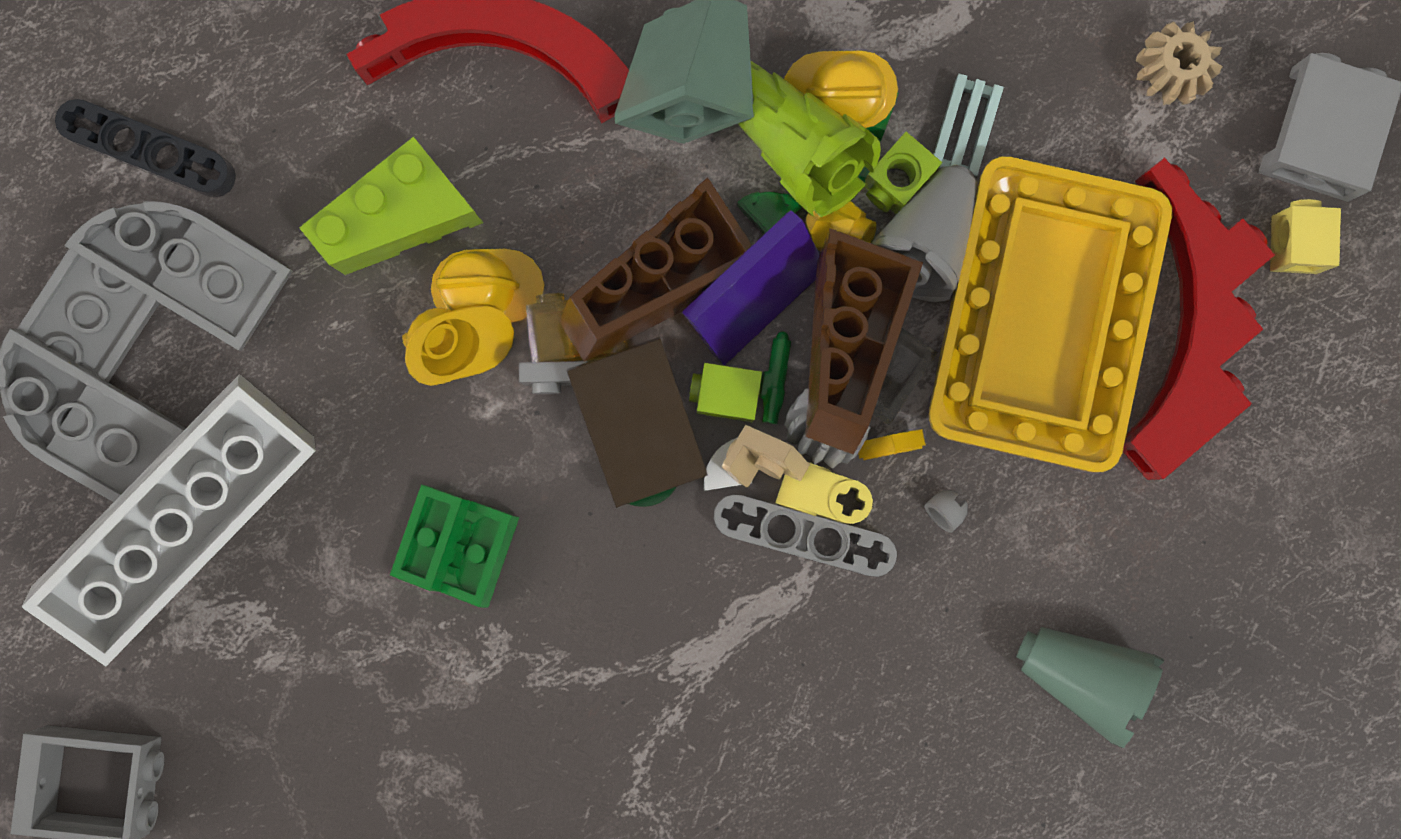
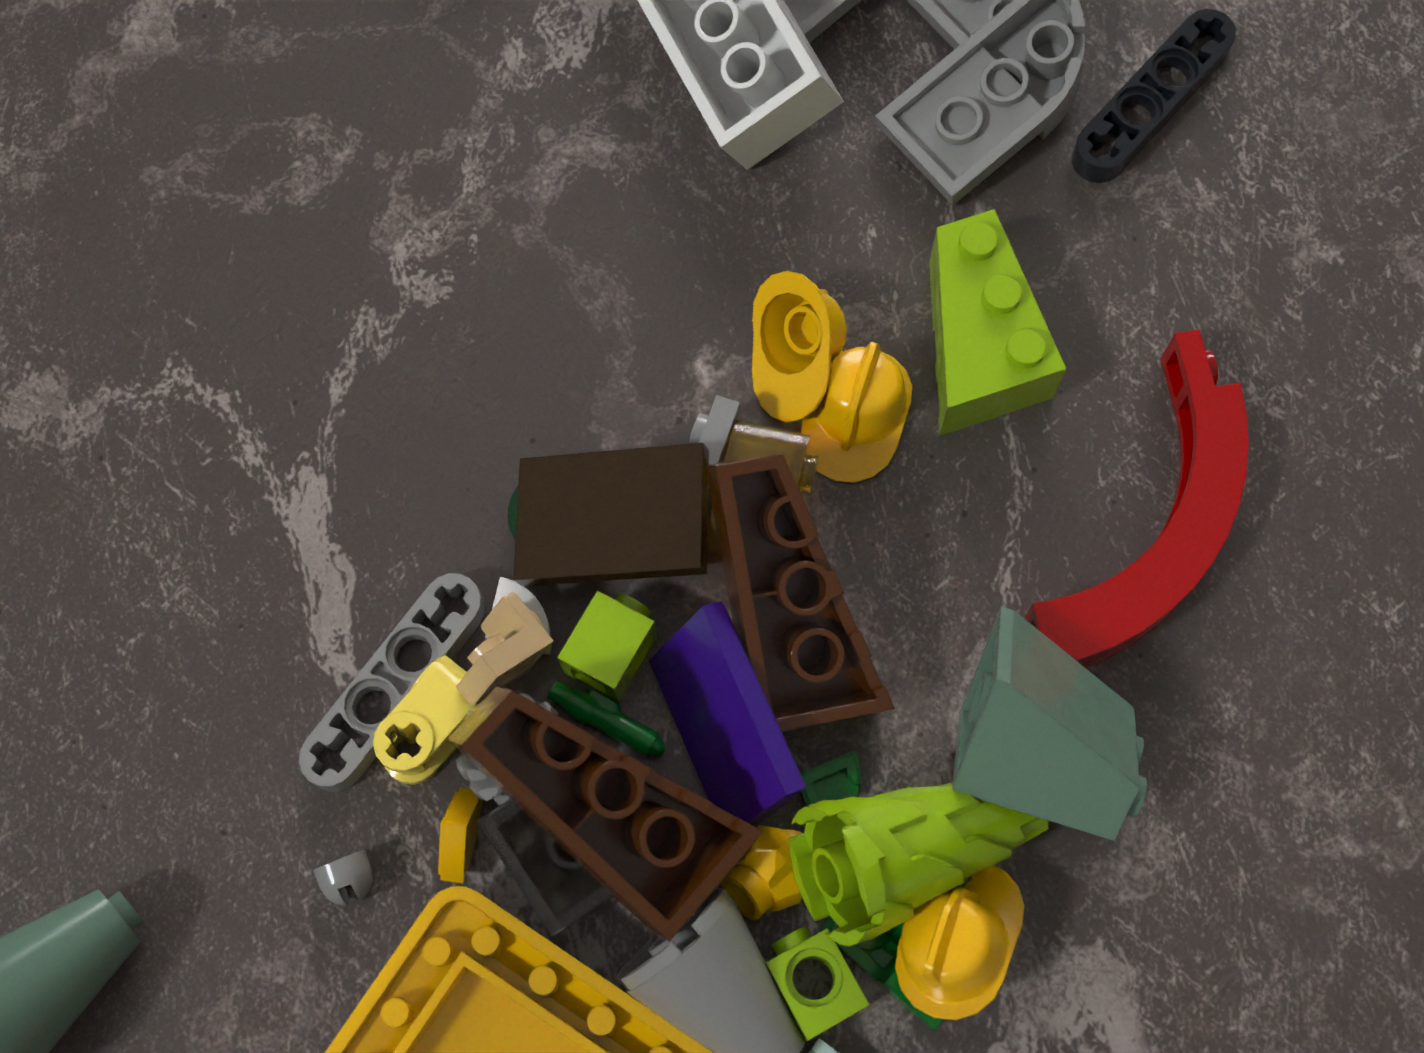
camera: 110 degrees right, 15 degrees down
(454, 546) = (556, 276): green slope -> none

